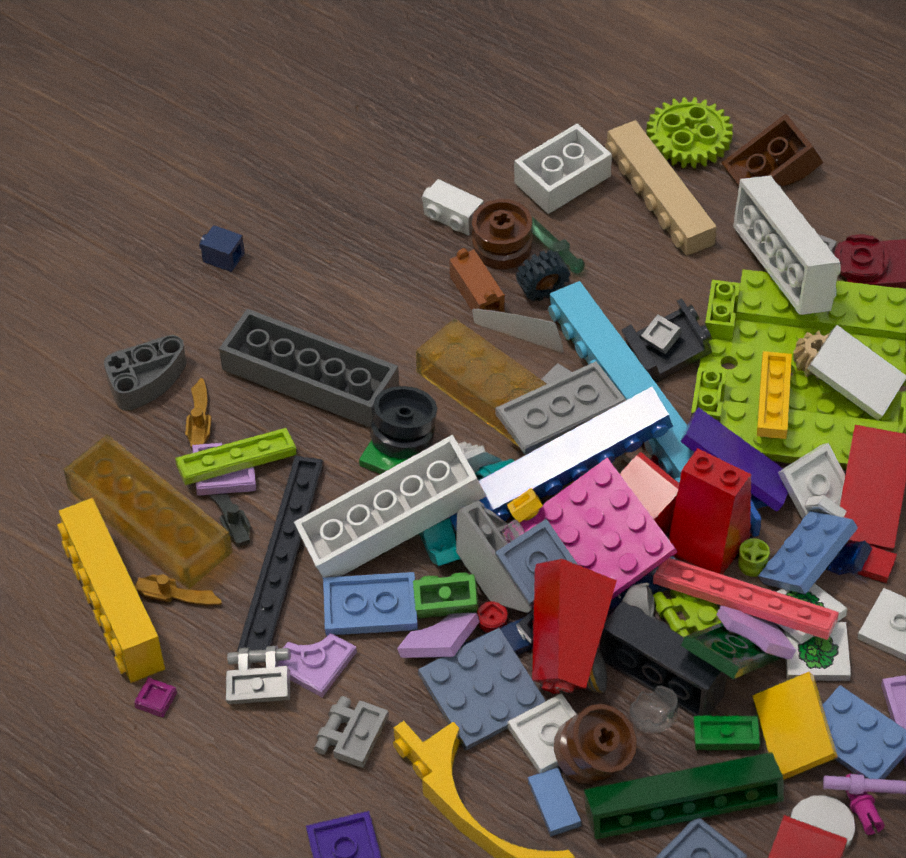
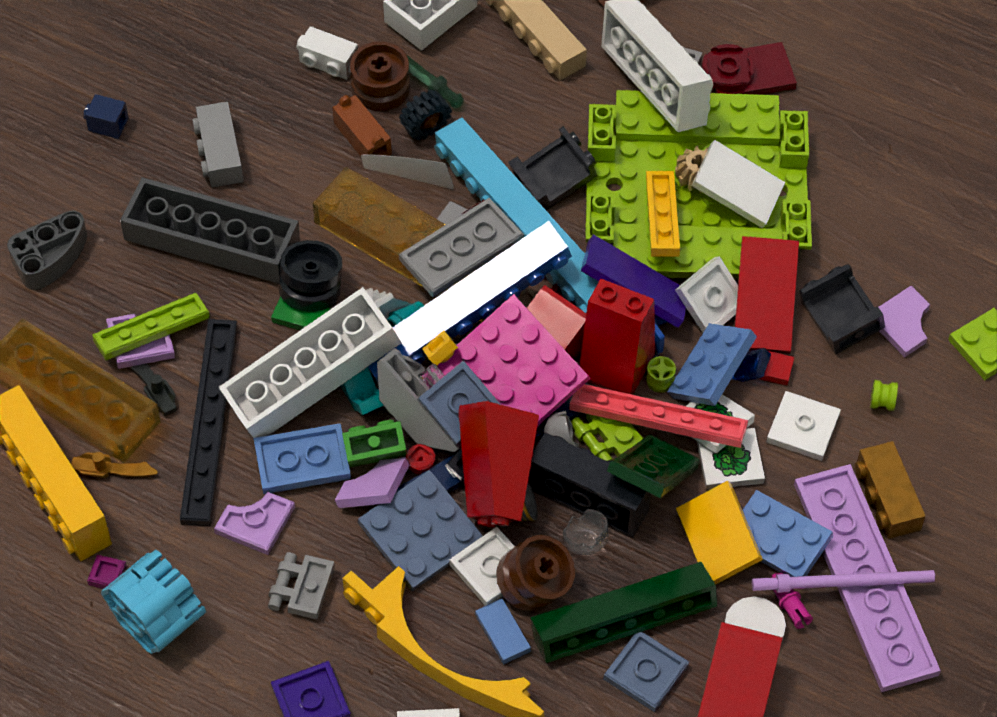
camera: 10 degrees left, 5 degrees up
(194, 734) = (150, 608): none -> medium azure piece
(198, 423) = (108, 297): pearl gold piece -> none
(258, 684) = (206, 549): plate -> none
(329, 286) = (217, 144): none -> light grey brick
(661, 334) = (547, 163): light grey plate -> none
(726, 733) = (655, 547): green plate -> none
(757, 630) = (675, 446): lavender tile -> none
(824, 505) = (722, 317): white tile -> none

